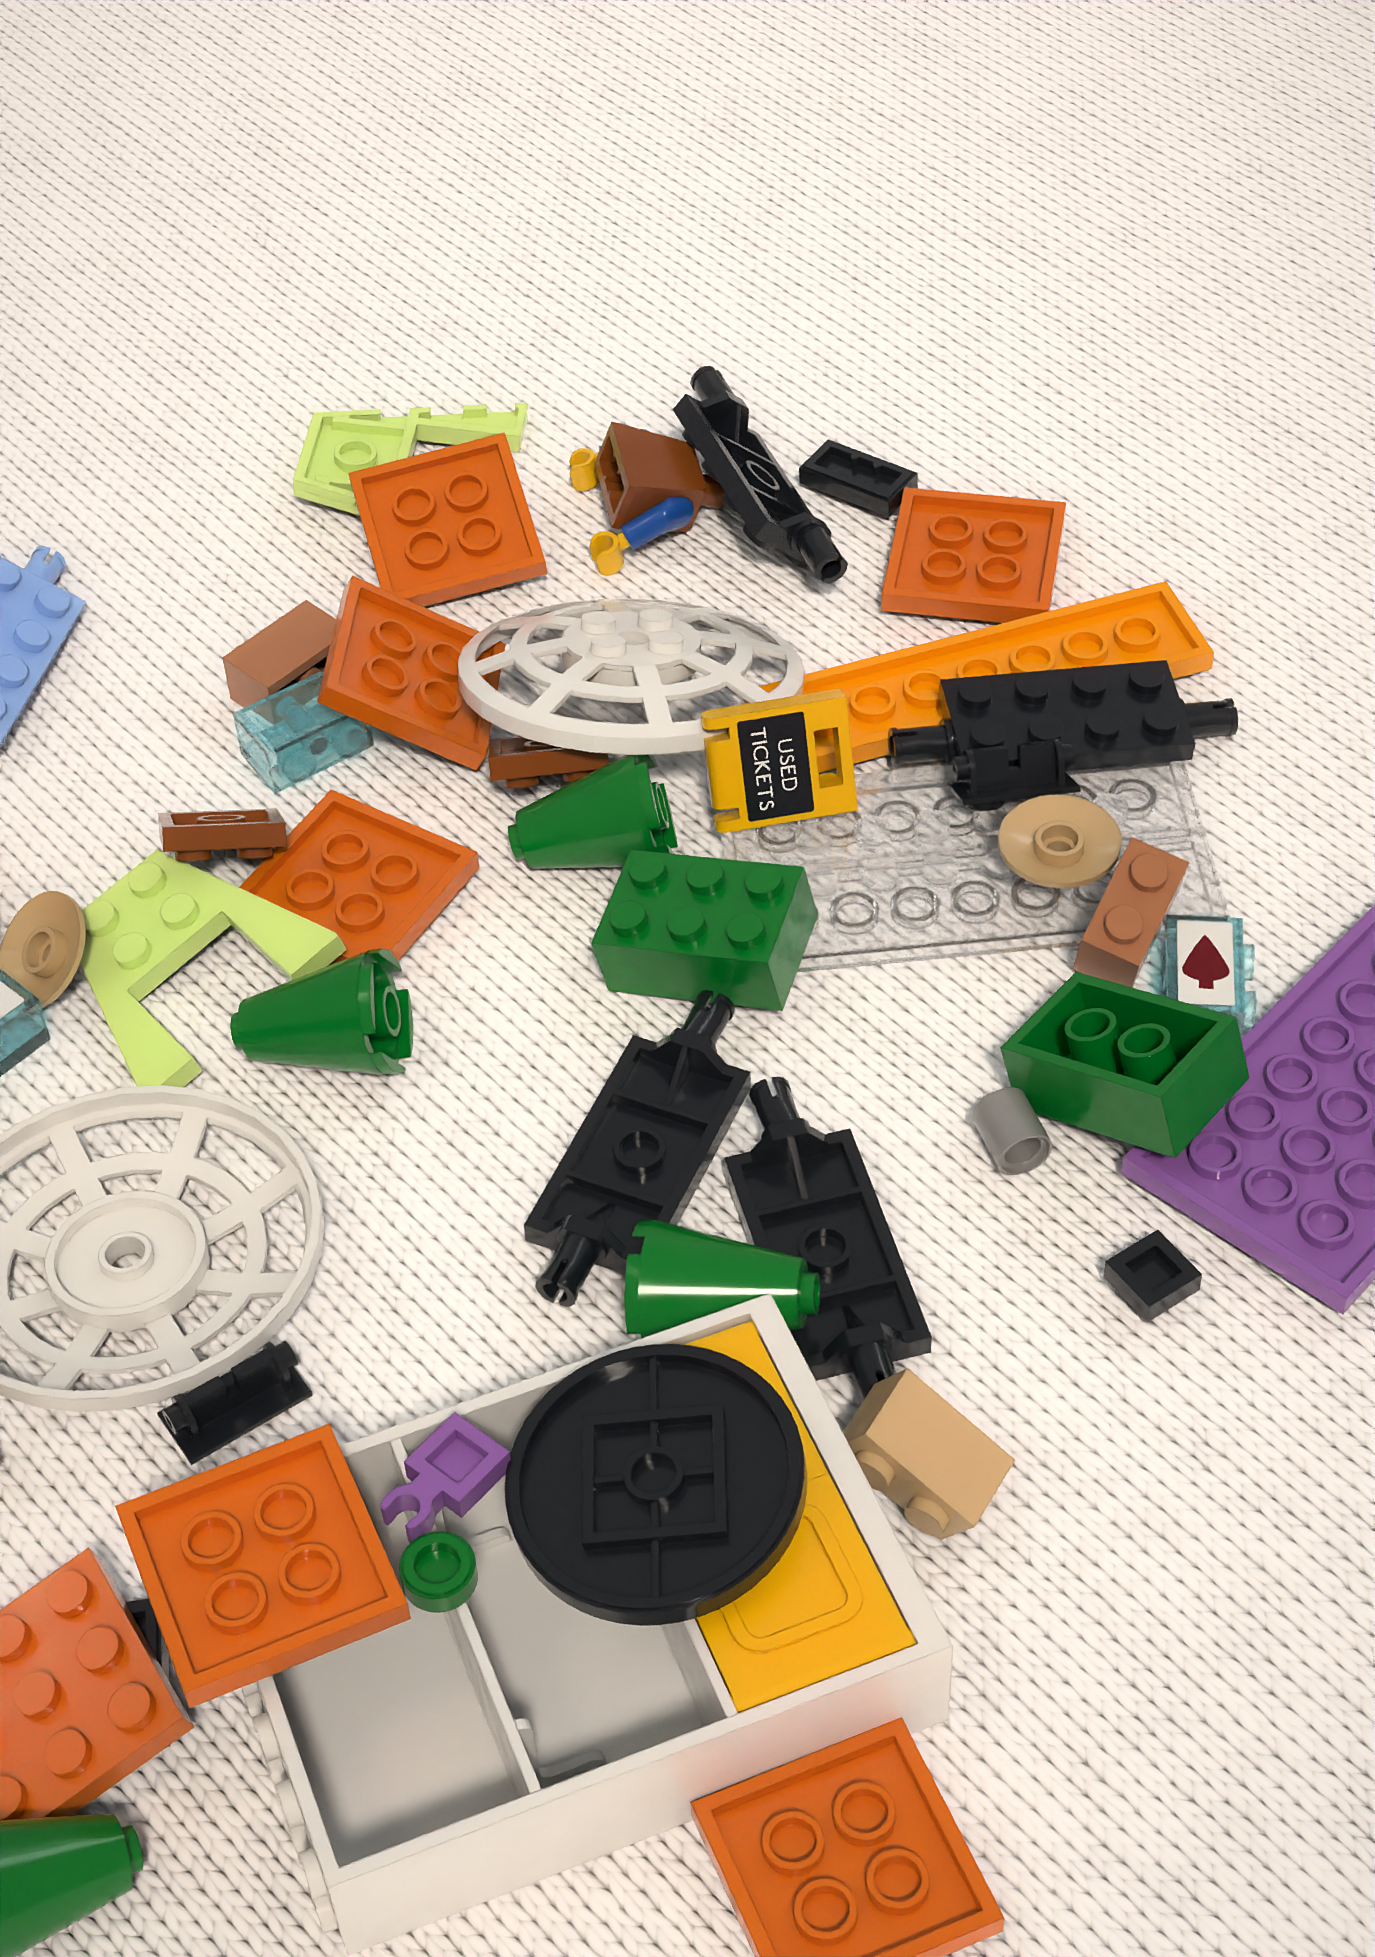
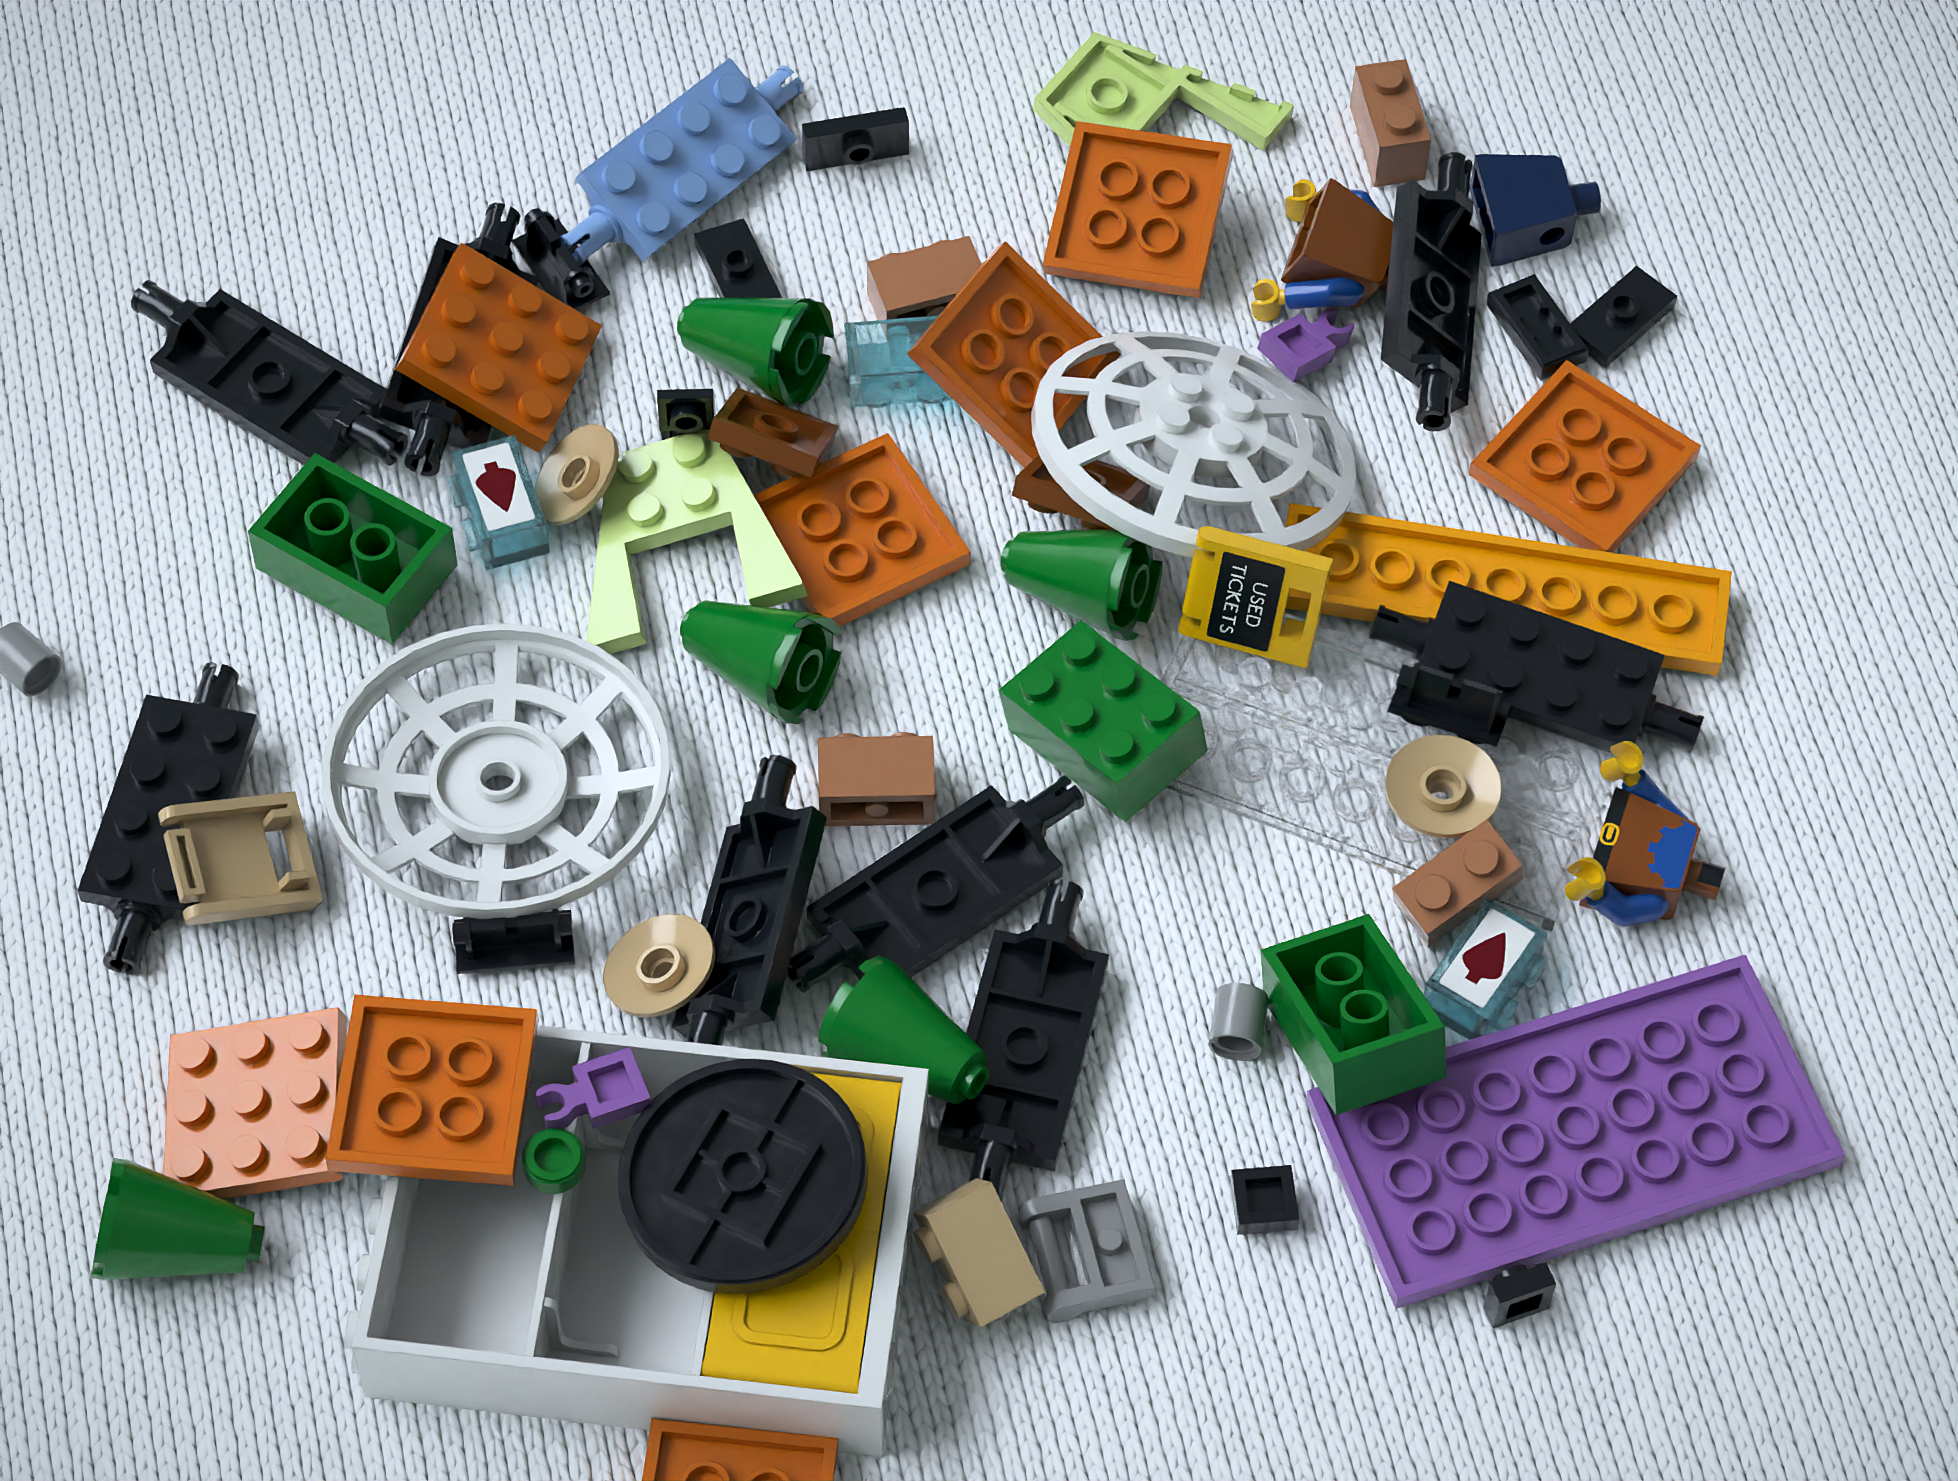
camera: 25 degrees right, 10 degrees up
(94, 727) = (735, 262): none -> black plate
(122, 843) = (685, 411): none -> black slope
(143, 577) = (855, 139): none -> black plate
(156, 764) = (762, 342): none -> green cone
(407, 1349) = (659, 965): none -> tan dish
(474, 1252) = (755, 908): none -> black plate
(516, 1083) = (876, 779): none -> nougat brick
(622, 379) = (1390, 123): none -> nougat brick
(664, 572) = (1304, 346): none -> medium lavender plate
(786, 393) = (1527, 205): none -> dark blue torso
(923, 441) = (1623, 315): none -> black plate
(1035, 1394) = (1106, 1245): none -> light grey plate
(1263, 823) = (1641, 851): none -> torso

